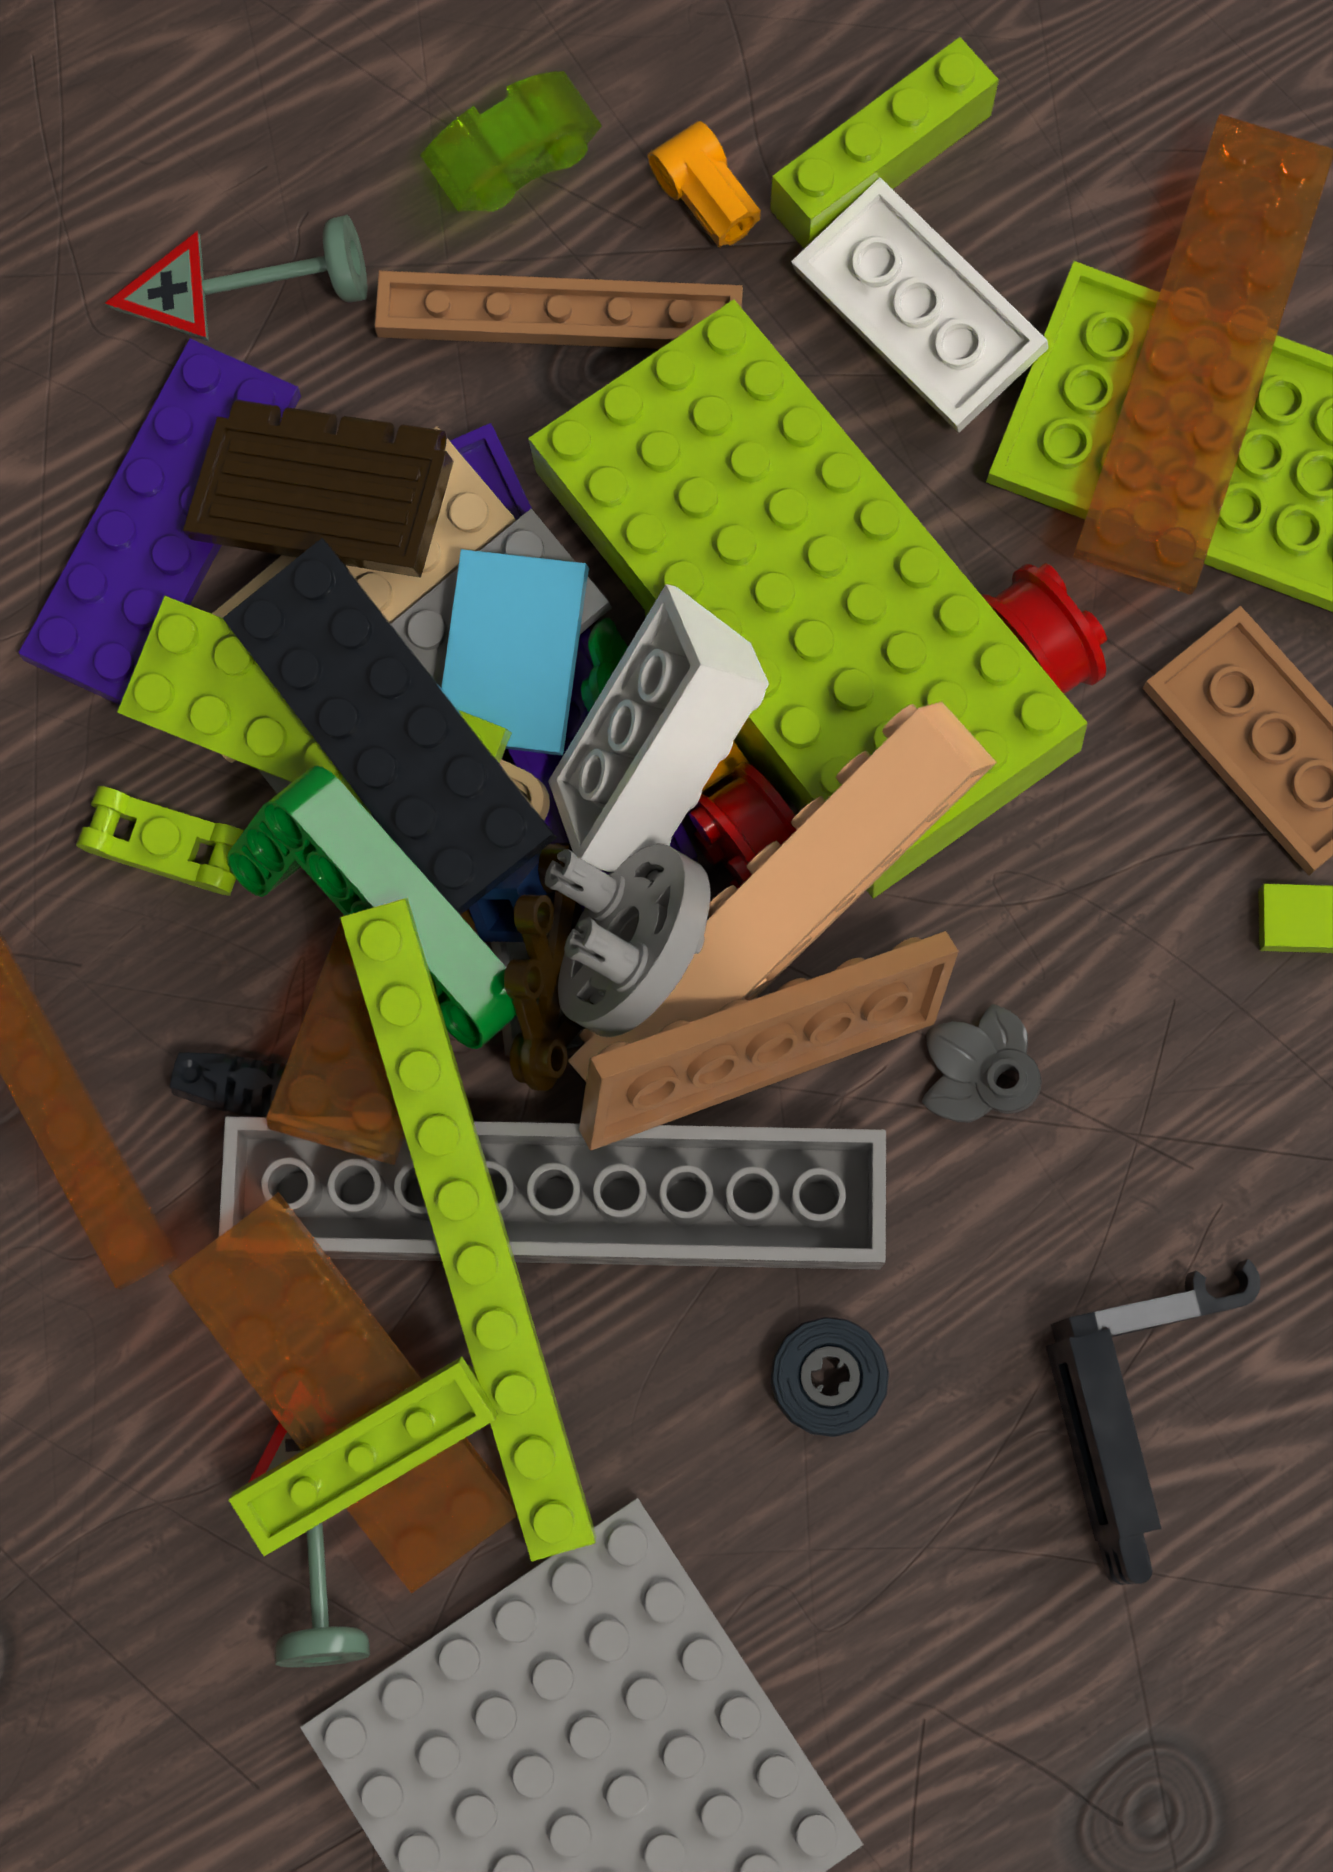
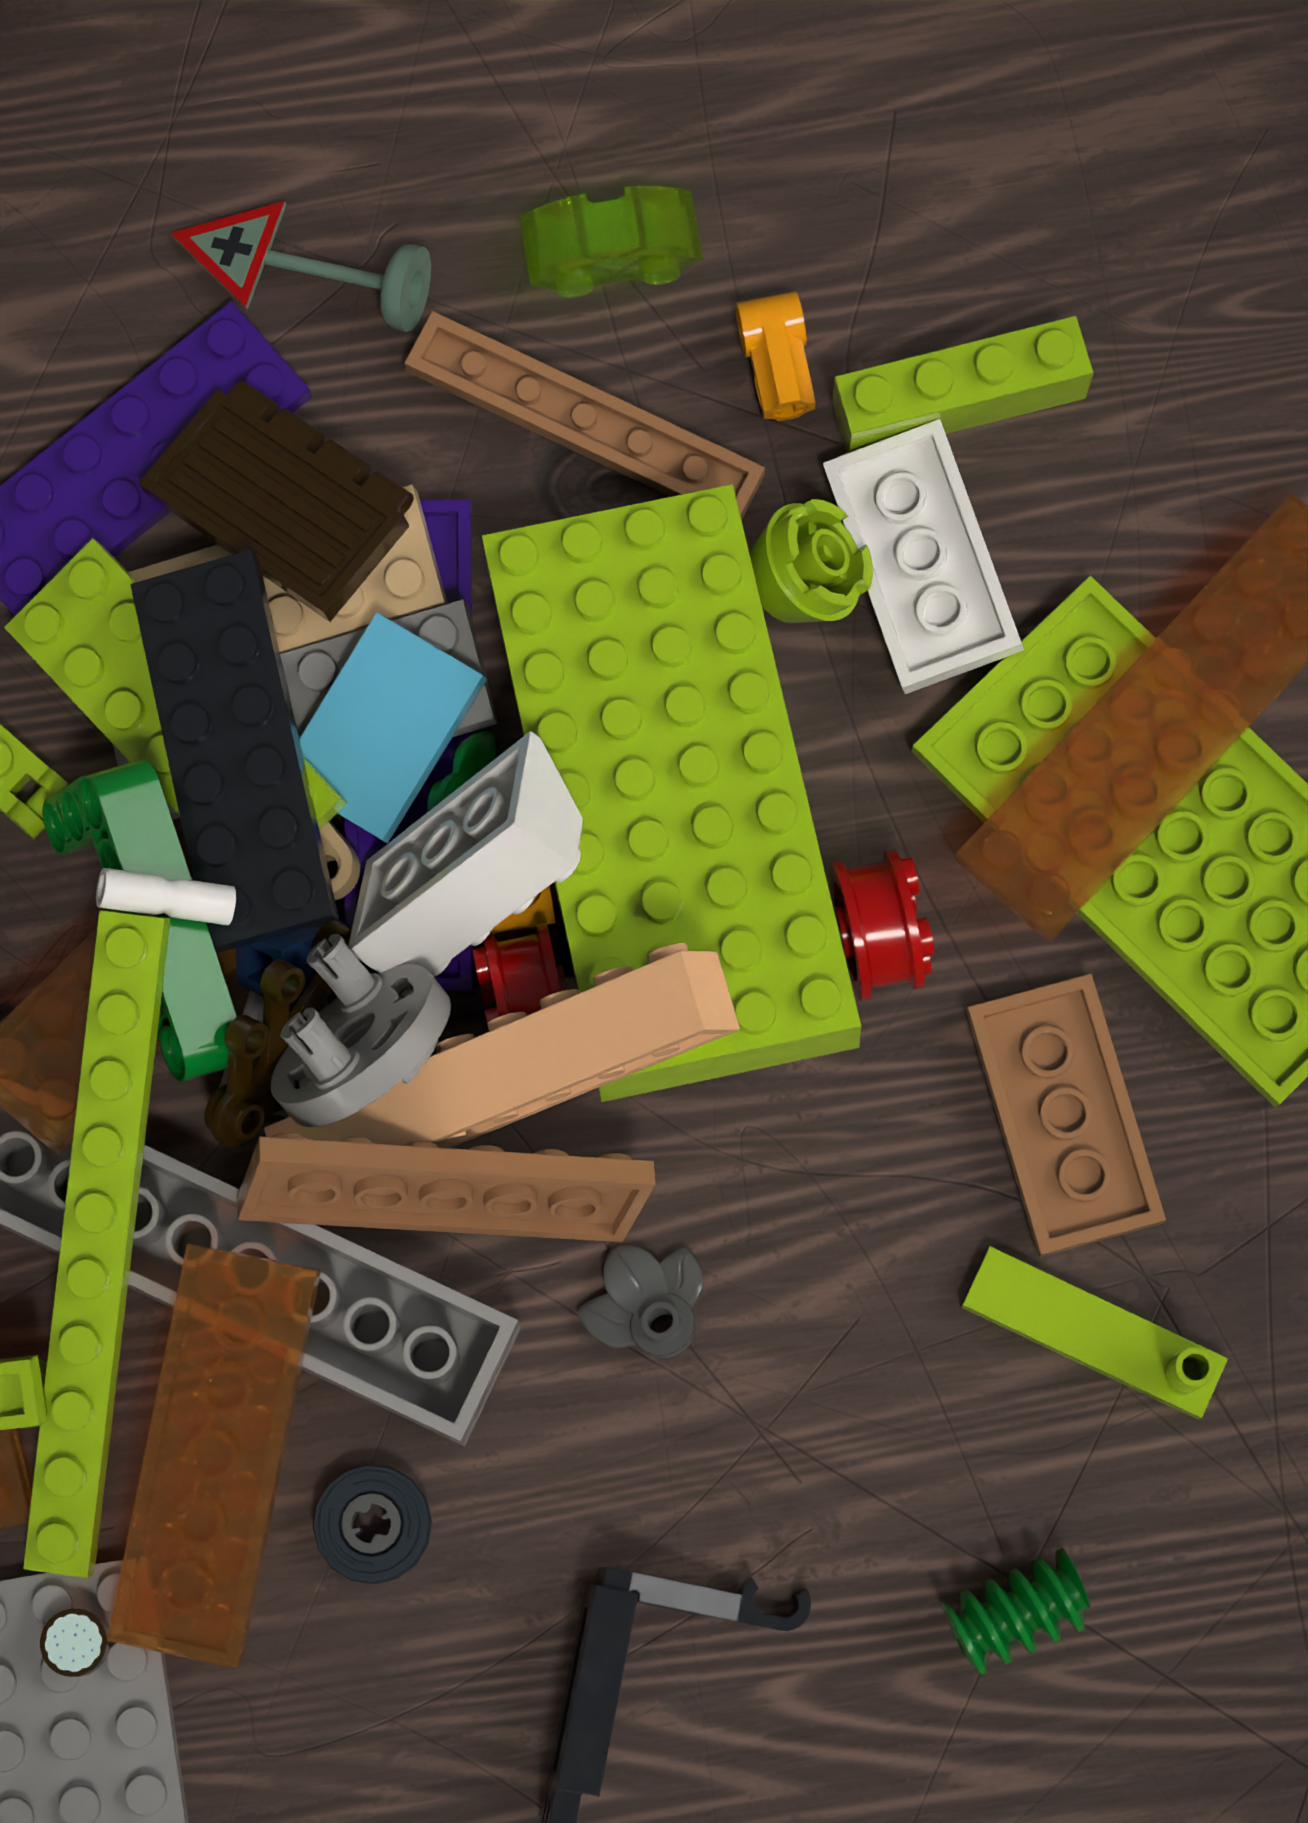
camera: 25 degrees right, 0 degrees up
(387, 881) = (157, 895): none -> white piece
(612, 1607) = (74, 1642): none -> light aqua tile
(666, 1376) = (214, 1455): none -> clear orange plate
(830, 347) = (809, 564): none -> lime cone

